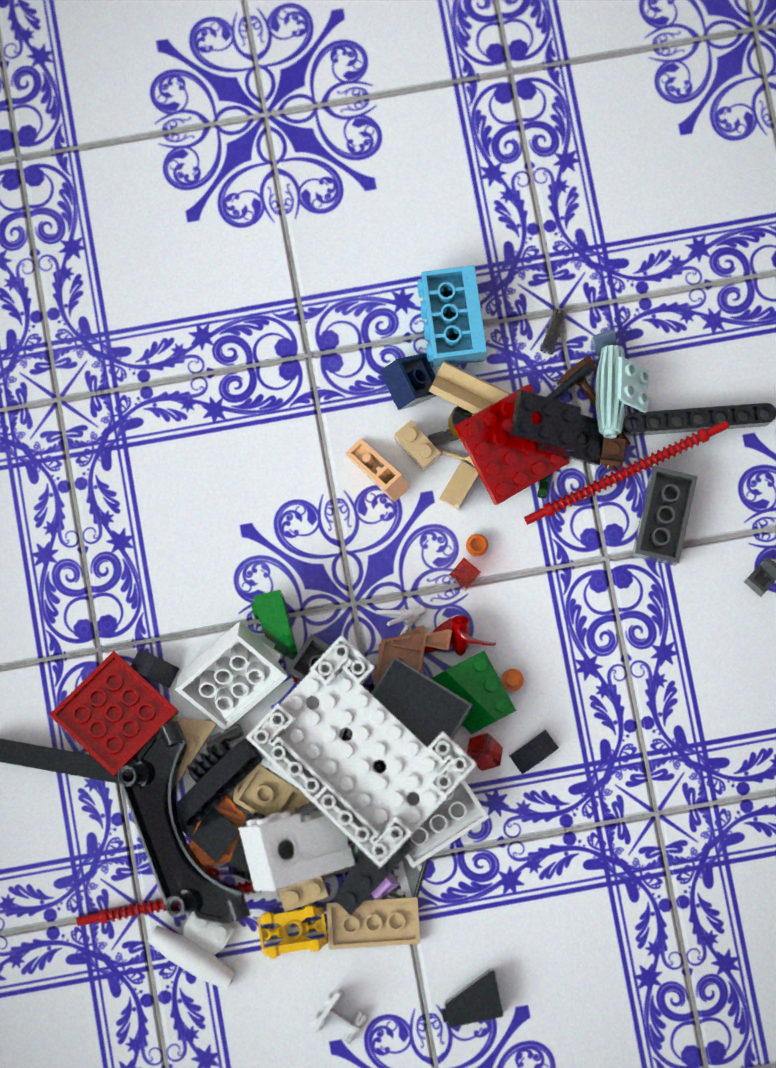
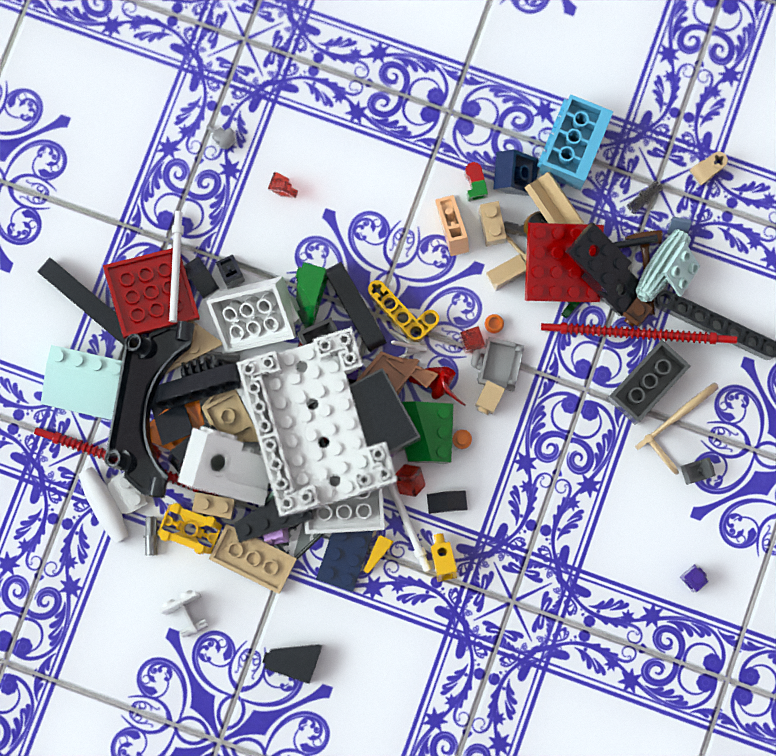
camera: 25 degrees right, 0 degrees up
(95, 513) = (223, 138): none -> light grey piece
(96, 845) = (81, 382): none -> light aqua slope
(105, 635) = (177, 231): none -> white bar
(181, 645) = (230, 271): none -> black slope
(182, 529) = (280, 185): none -> clear red bracket
(257, 960) = (151, 536): none -> flat silver axle
(328, 608) = (355, 307): none -> black beam
(371, 406) = (477, 183): none -> leg
(374, 584) = (399, 309): none -> yellow beam
(465, 869) = (344, 558): none -> dark blue plate
(495, 836) = (380, 548): none -> yellow slope
(505, 581) = (499, 363): none -> light grey piece
(516, 623) = (489, 398): none -> tan slope
(536, 818) = (419, 551): none -> white bar
(570, 819) = (444, 565): none -> yellow torso
(599, 268) = (707, 168): none -> tan piece
(715, 528) = (679, 414): none -> tan animal

